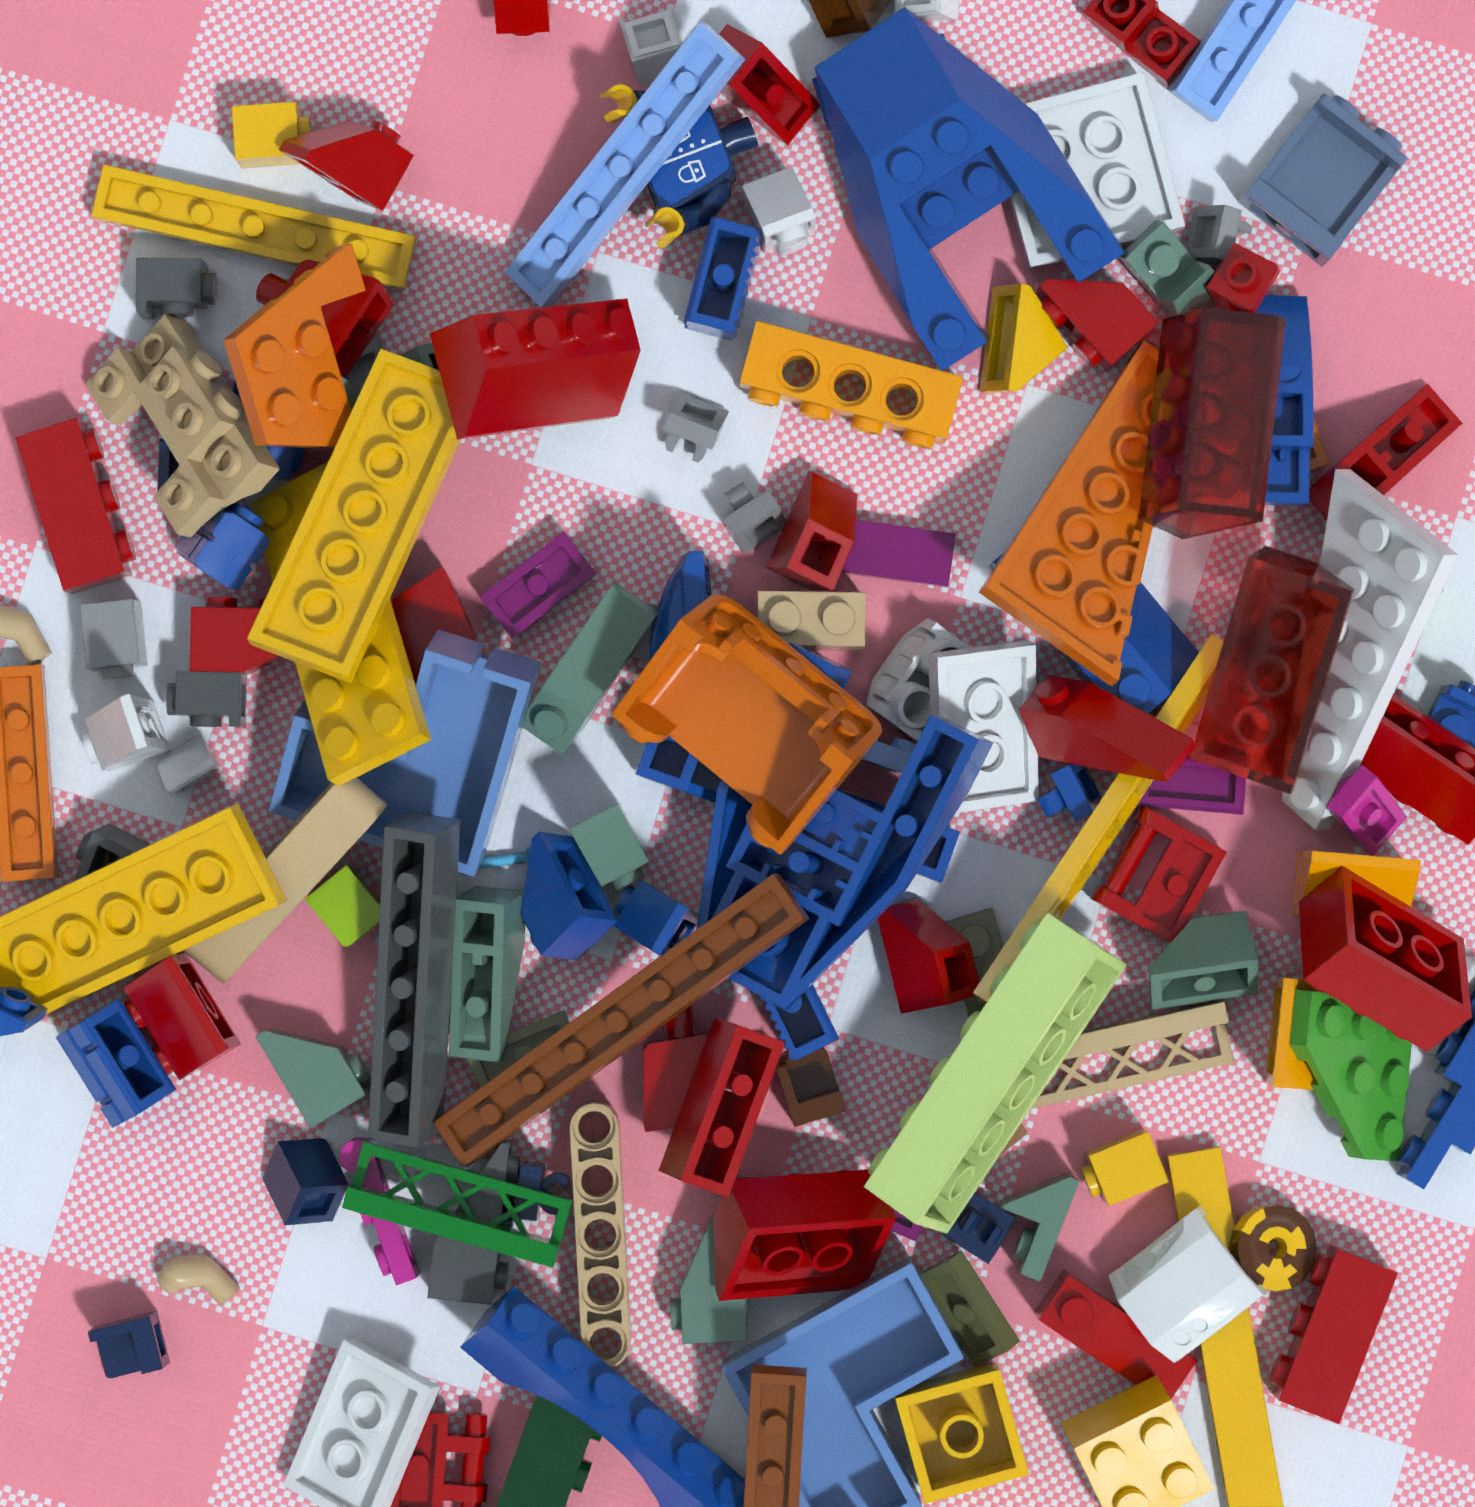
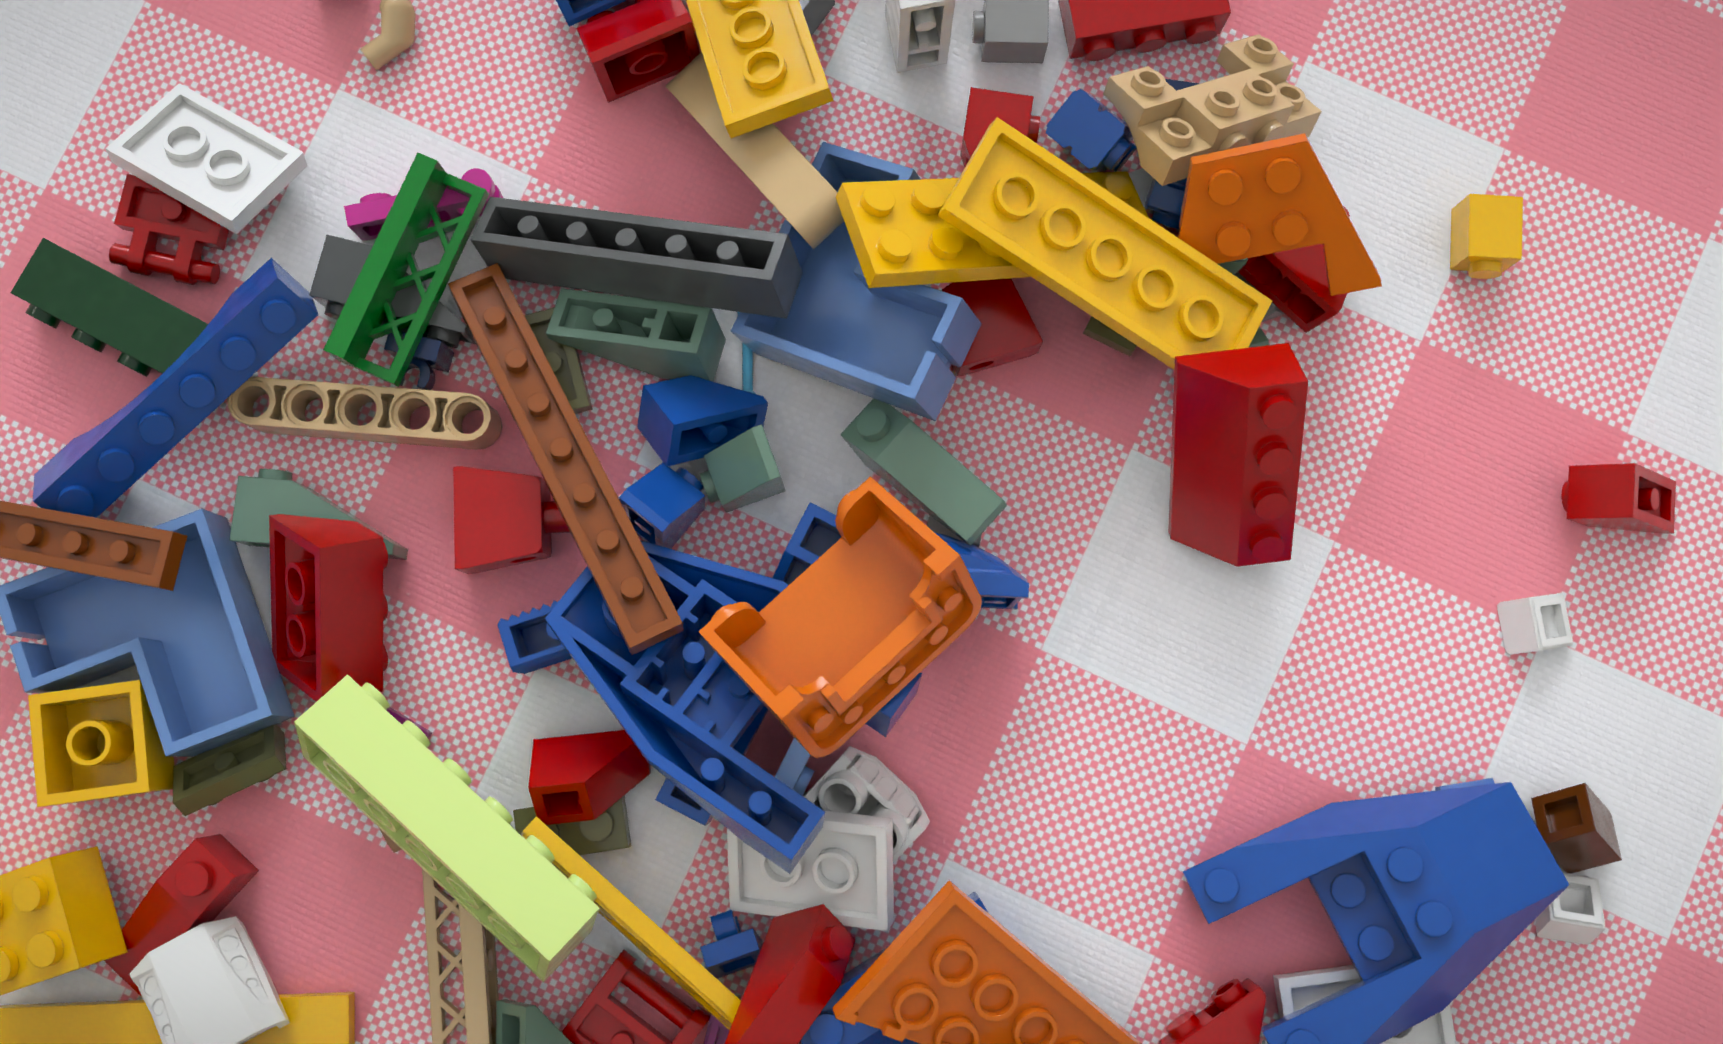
camera: 95 degrees right, 5 degrees down
(173, 286) = (1346, 123): dark grey brick -> none
(187, 765) = (879, 82): white slope -> none
(208, 698) = (941, 109): dark grey brick -> none
(247, 224) = (1399, 204): yellow plate -> none
(305, 1181) = (465, 138): dark blue panel -> none
(315, 1073) = (567, 158): sand green slope -> none
(346, 905) = (724, 203): lime panel -> none
(353, 159) = (1458, 308): red slope -> none
(538, 585) = (1011, 436): magenta plate -> none
(625, 165) = (1435, 578): light blue plate -> none
(695, 422) = (1156, 612): light grey tile -> none
(697, 174) = (1430, 633): torso -> none
(721, 1107) = (456, 541): red brick -> none
(723, 278) = (1301, 659): blue brick -> none
(753, 518) = (1053, 659): light grey tile -> none
(767, 88) = (1494, 721): red slope -> none
(780, 211) = (1361, 727): white slope -> none
(810, 1087) = (471, 638): reddish brown panel -> none
(815, 618) = (944, 705): tan brick -> none
(816, 535) = (1028, 719): red slope -> none
(901, 553) = (999, 801): magenta tile -> none
(933, 389) = (1223, 704): light orange brick -> none
(981, 1227) = (309, 795): dark blue tile -> none
(1019, 339) = (1202, 955): yellow slope -> none
(1048, 1207) = (316, 862): sand green slope -> none
(1123, 1168) = (343, 948): yellow brick -> none

